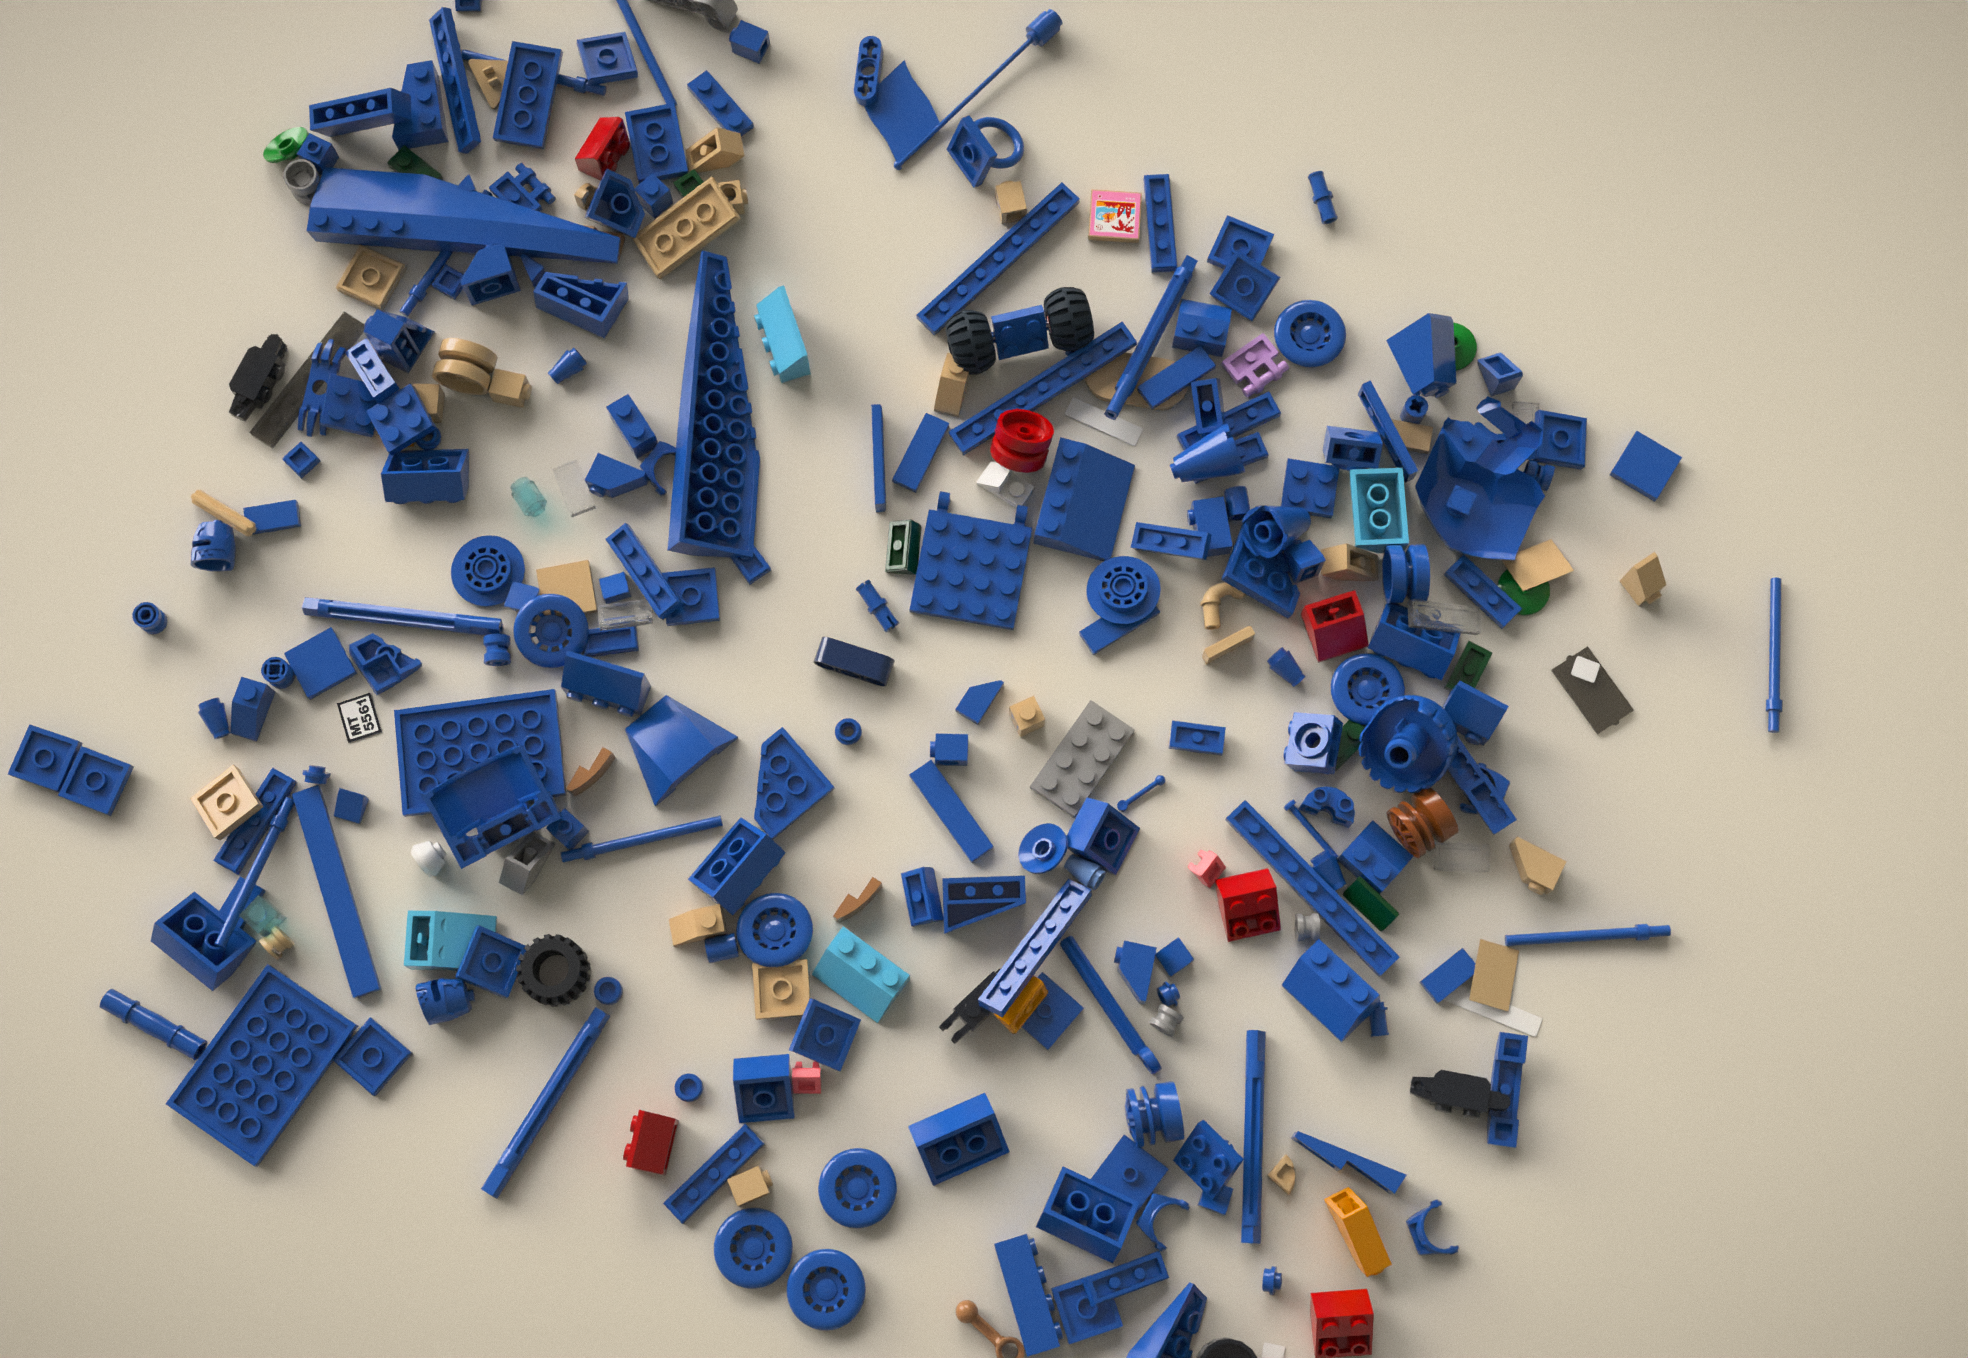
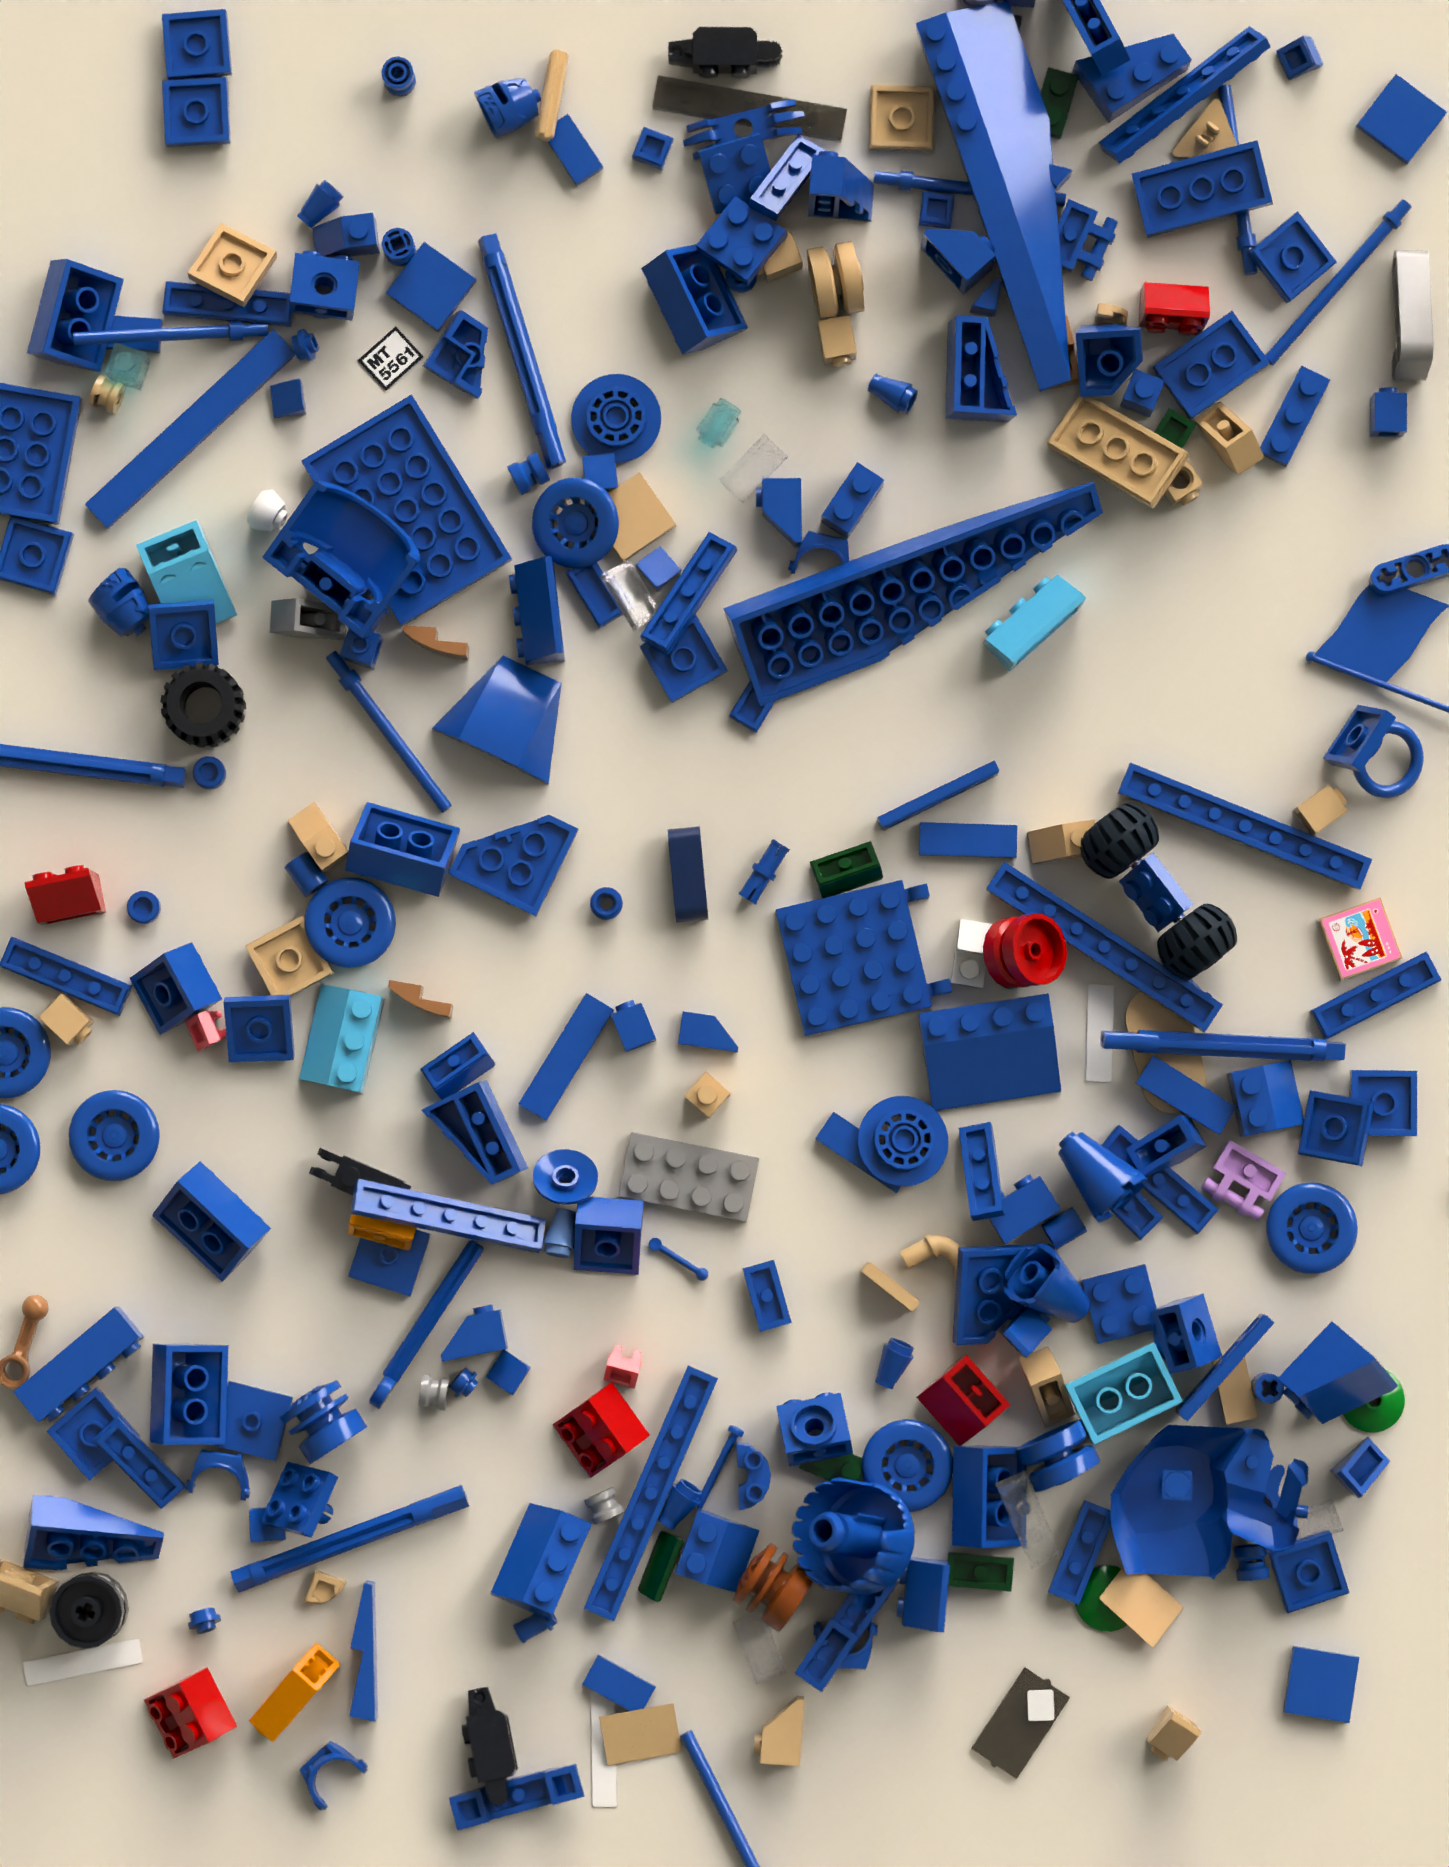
camera: 70 degrees right, 10 degrees up
(273, 726) = (315, 270): none -> blue brick

